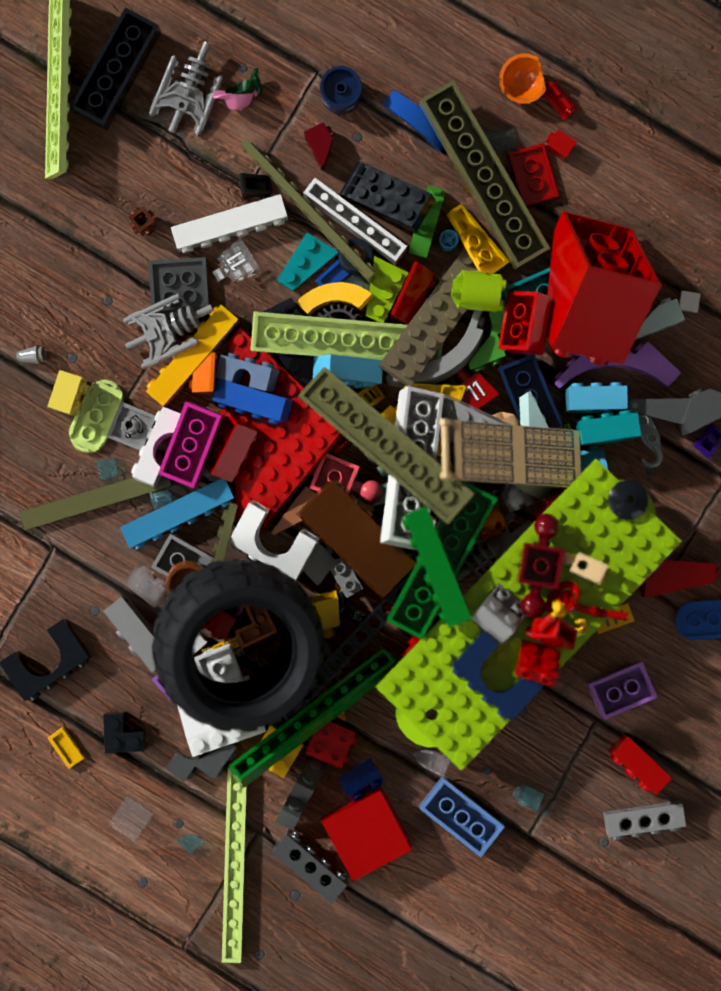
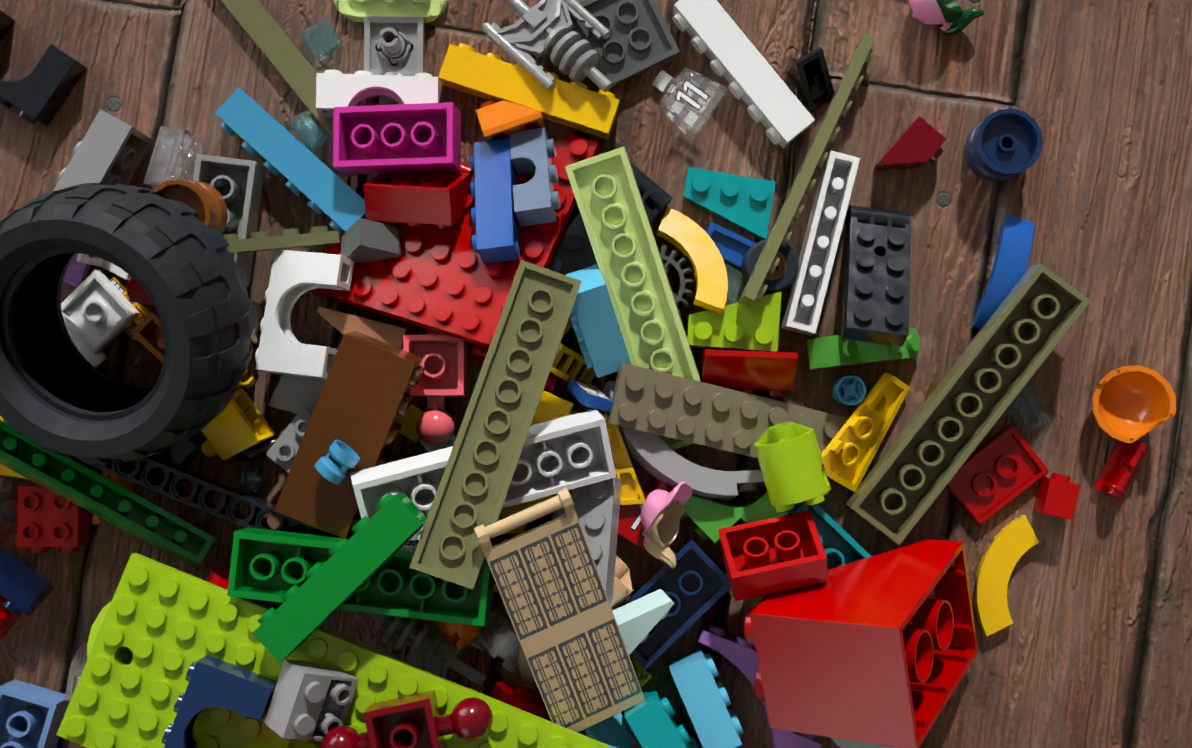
camera: 70 degrees right, 0 degrees up
(245, 485) = (371, 241): none -> dark grey slope
(372, 551) = (337, 462): none -> dark azure wheel
(389, 392) = (589, 395): none -> blue tile
(480, 380) = (661, 520): none -> hair
(590, 199) = (995, 572): none -> yellow tile

